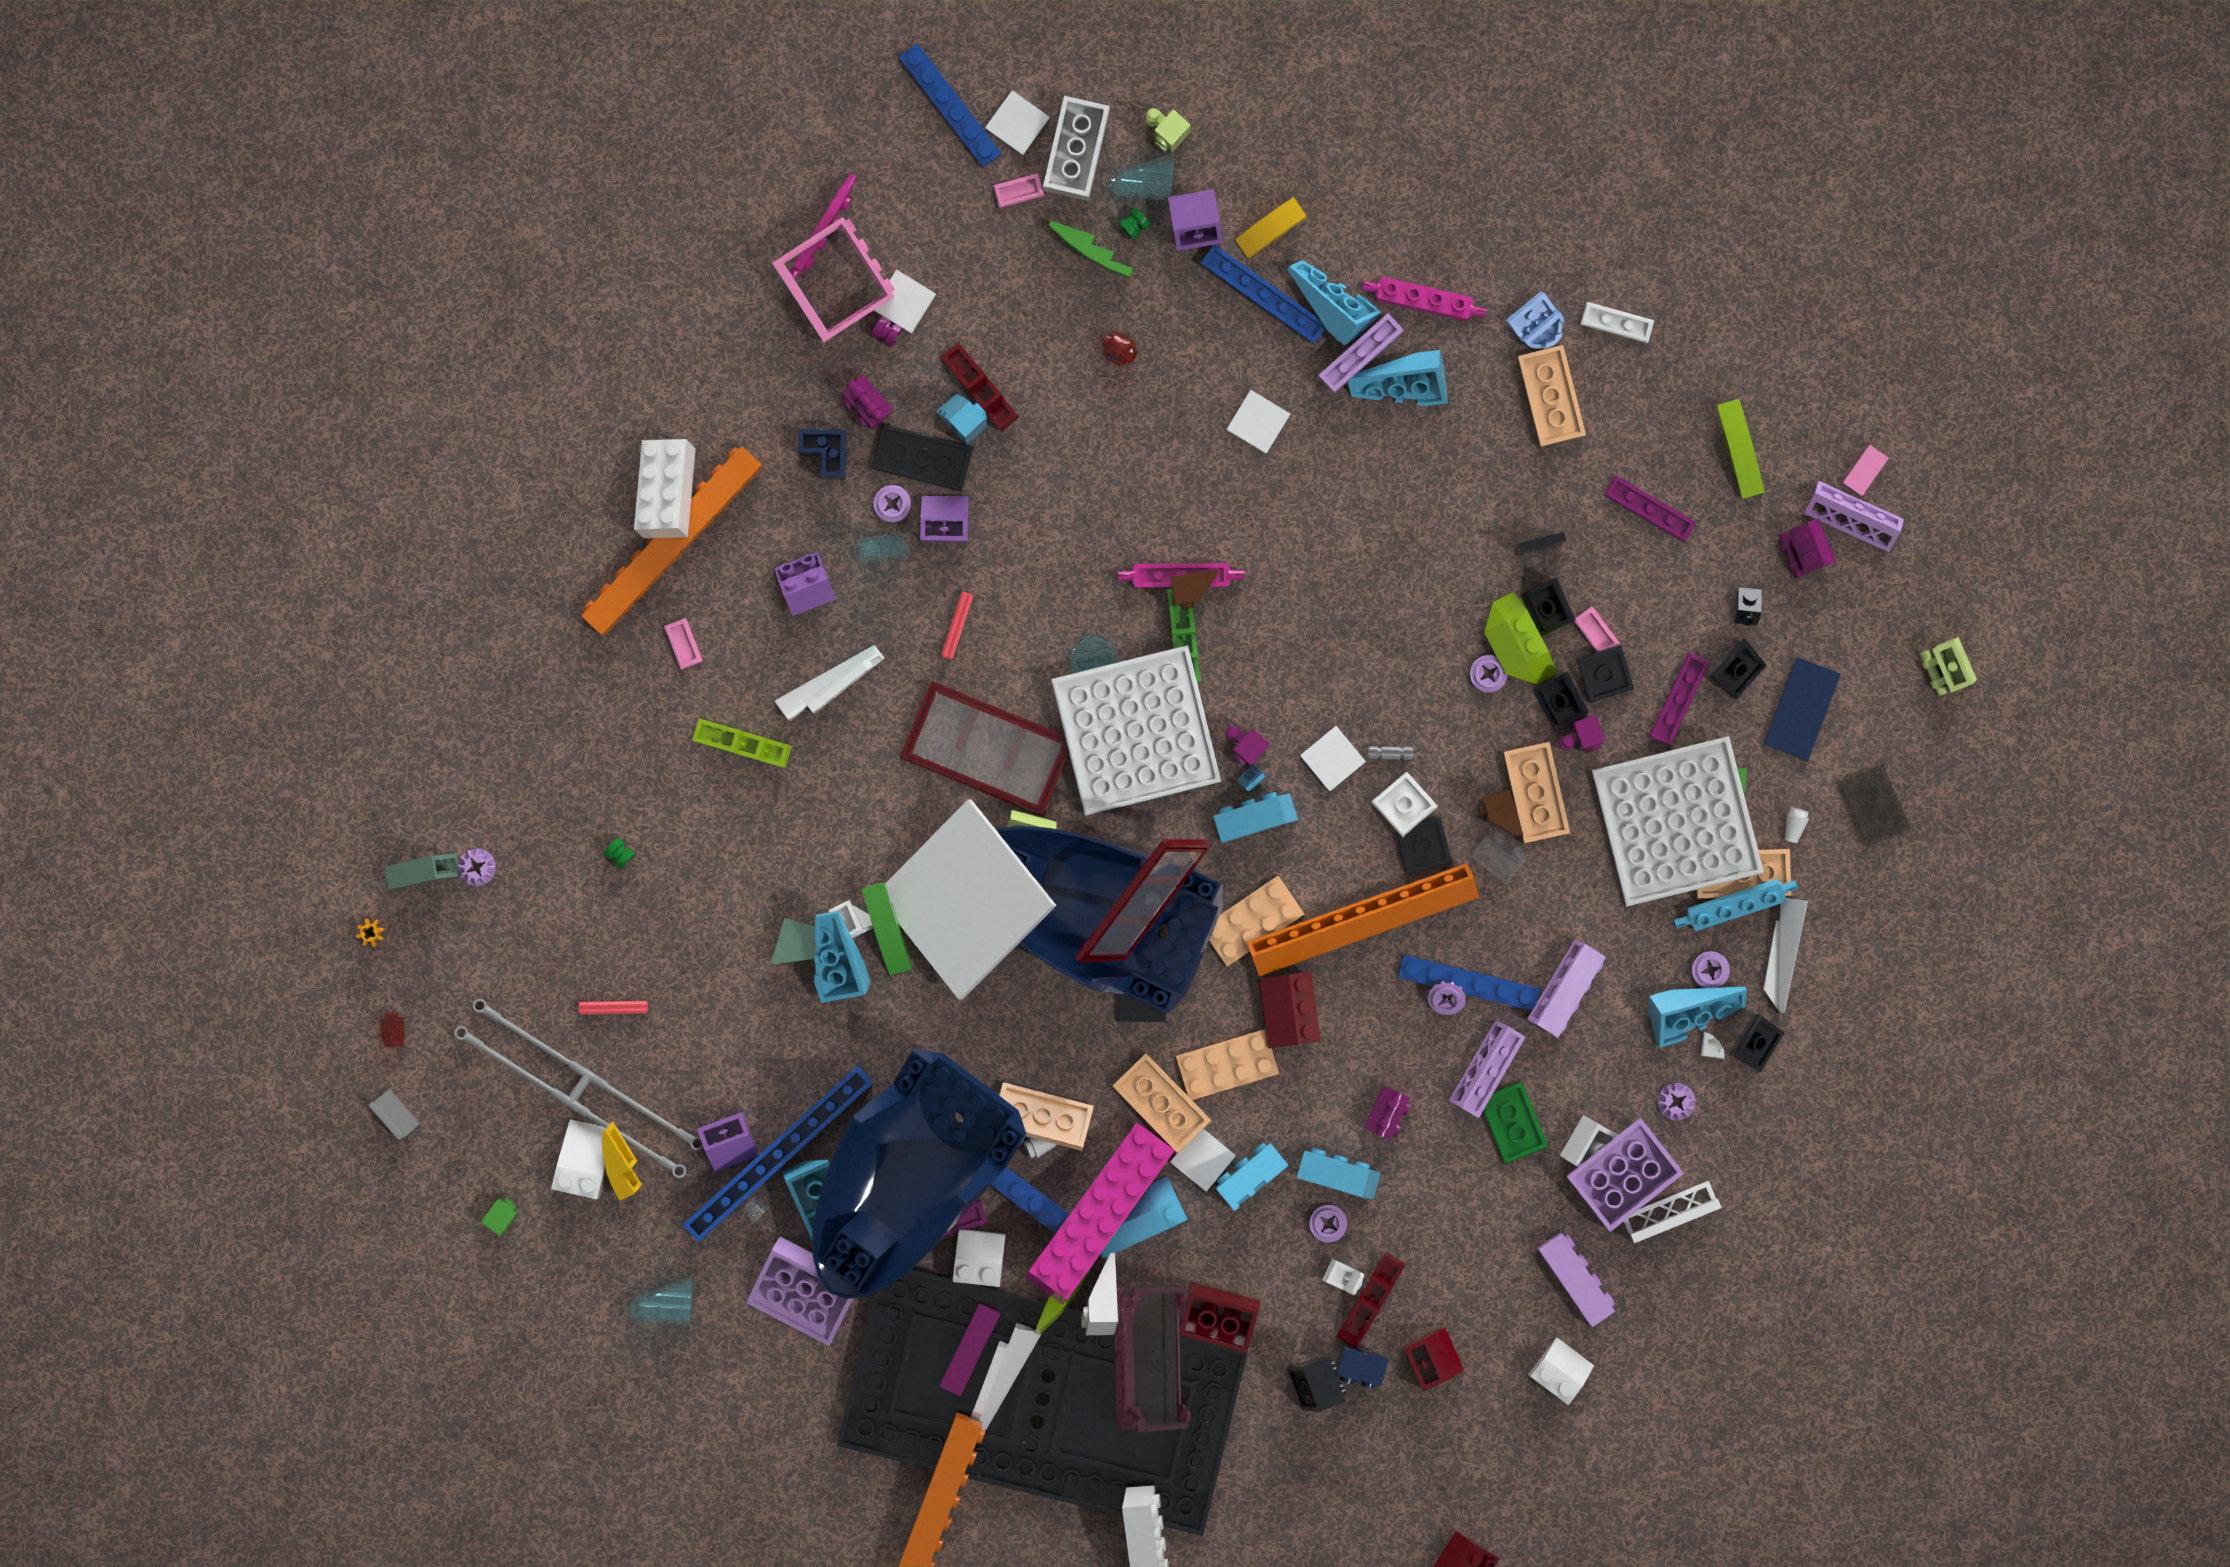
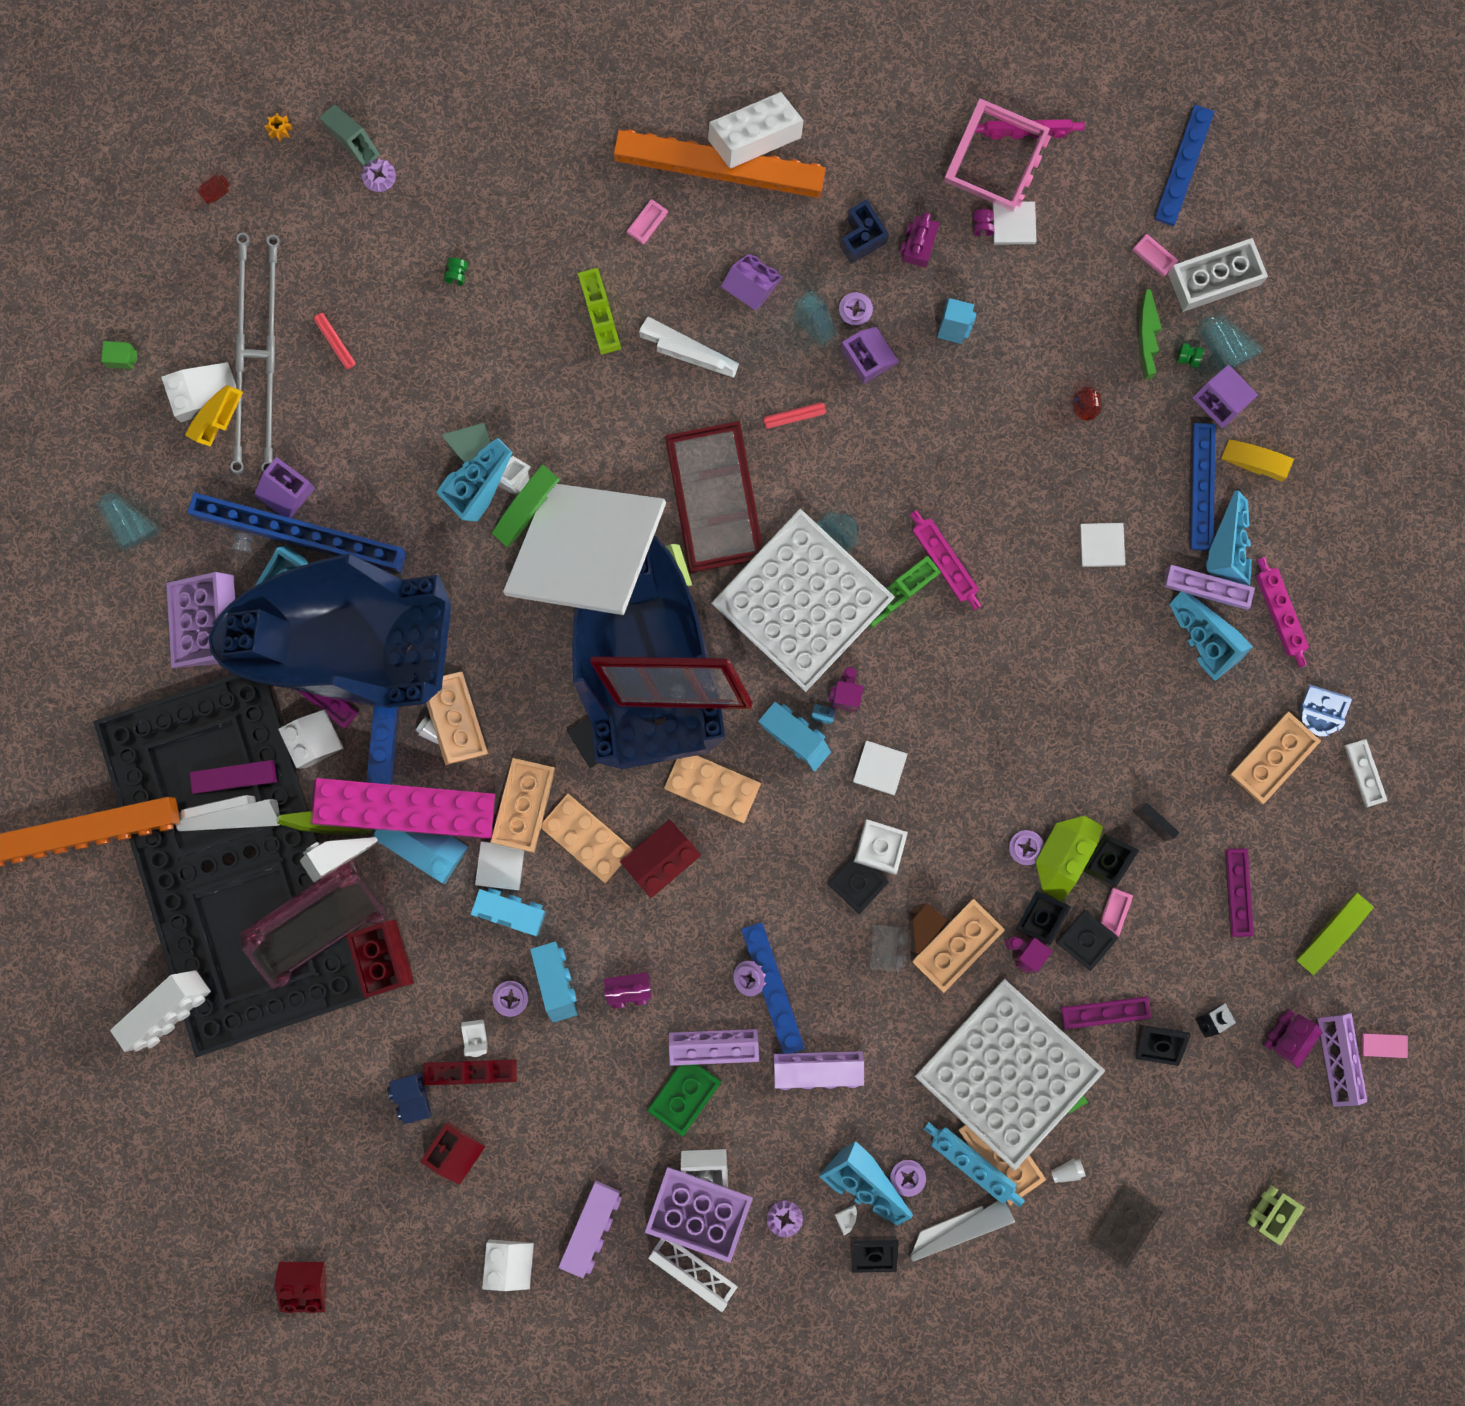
camera: 55 degrees right, 5 degrees down
(394, 1115) = (148, 229): light grey panel -> none
(922, 457) = (905, 310): black tile -> none
(980, 387) = (987, 318): dark red slope -> none
(1017, 123) = (1205, 222): white tile -> none
(1169, 130) = (1281, 333): yellowish green brick -> none
(1191, 587) = (942, 571): reddish brown slope -> none
(1317, 1384) = (372, 1071): black slope -> none
(1363, 919) = (769, 871): orange brick -> none
(1390, 753) = (914, 810): light grey axle -> none
(1802, 709) = (1163, 1117): dark blue tile -> none

